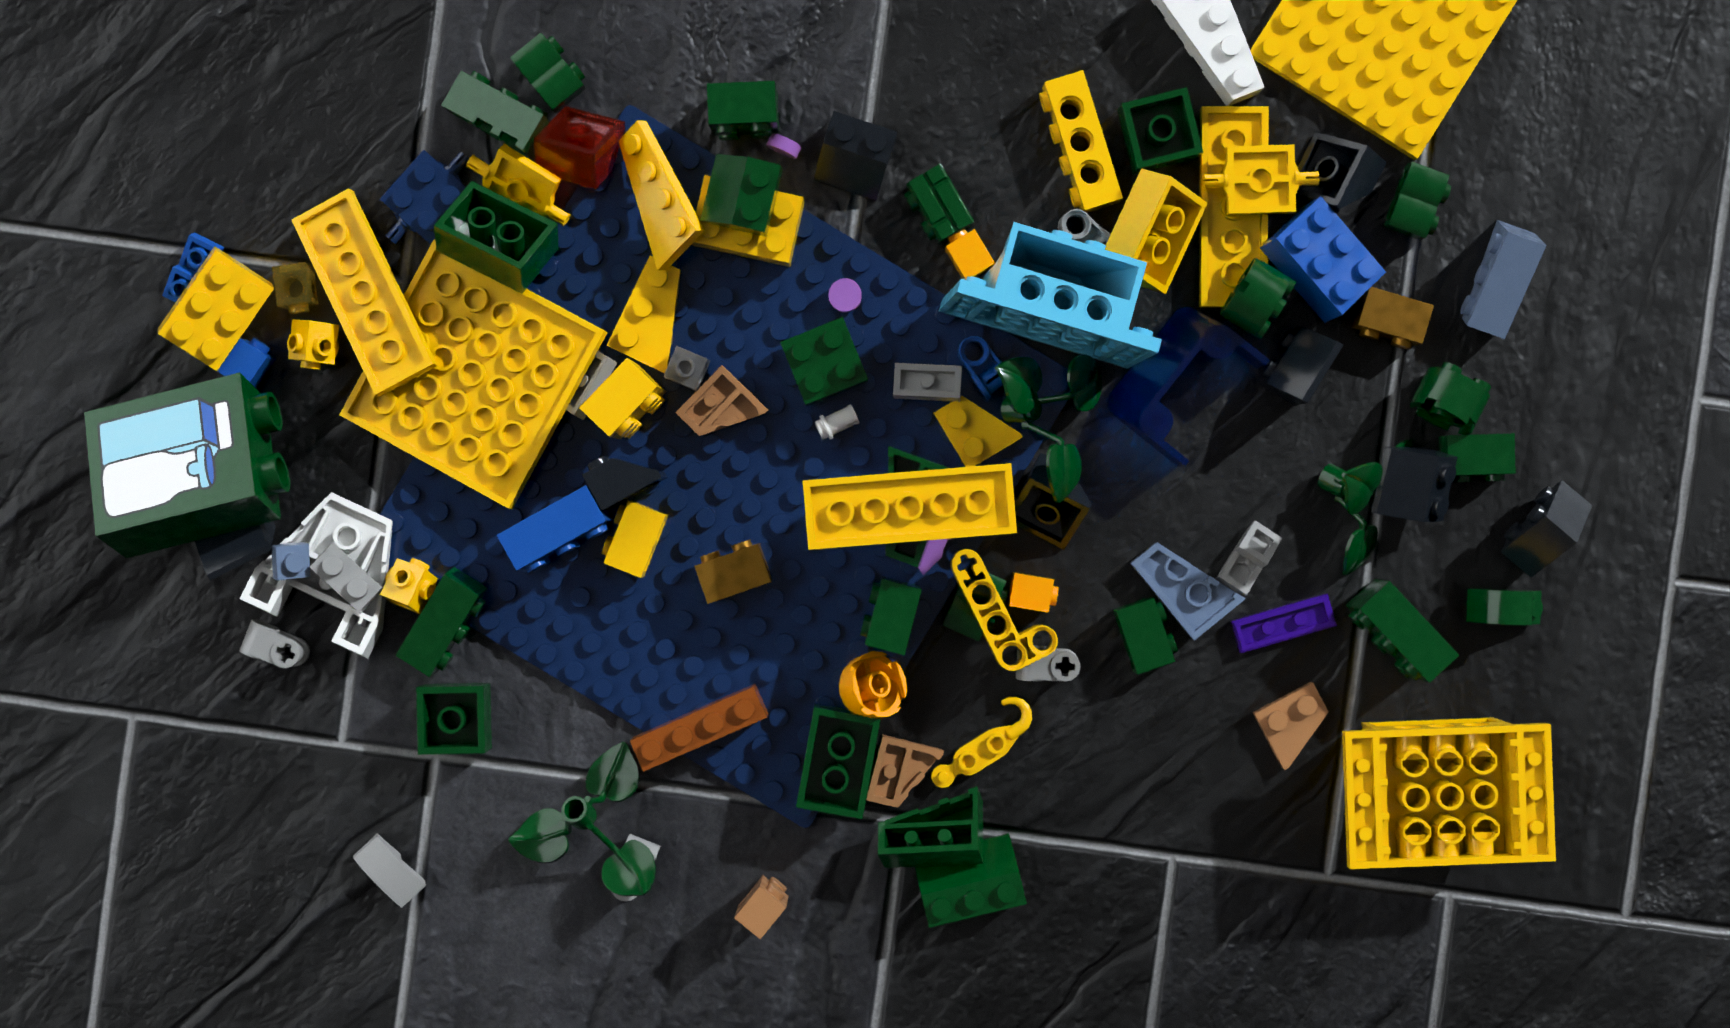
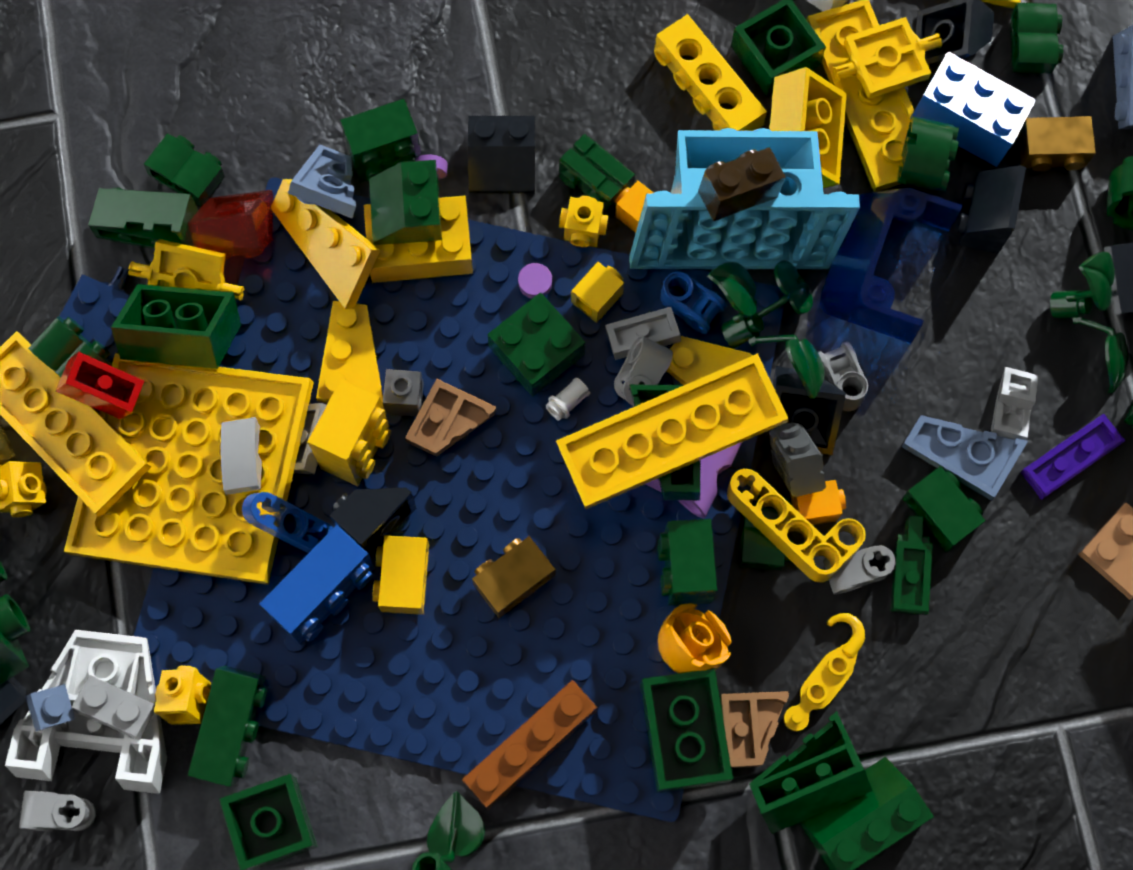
camera: 15 degrees left, 15 degrees down
(392, 232) = (62, 341): none -> dark green brick
(409, 277) = (100, 385): none -> red brick
(519, 385) = (240, 457): none -> light grey slope
(541, 450) = (274, 524): none -> blue beam
(676, 136) = (326, 181): none -> sand blue wing
(900, 327) = (598, 291): none -> yellow brick
(906, 263) = (583, 221): none -> yellow brick
(913, 421) = (643, 366): none -> light grey piece
(1026, 552) = (797, 459): none -> dark grey brick
(1050, 301) = (741, 183): none -> dark brown brick
(1094, 679) = (912, 570): none -> dark green hinge
(1100, 477) = (843, 370): none -> light grey piece

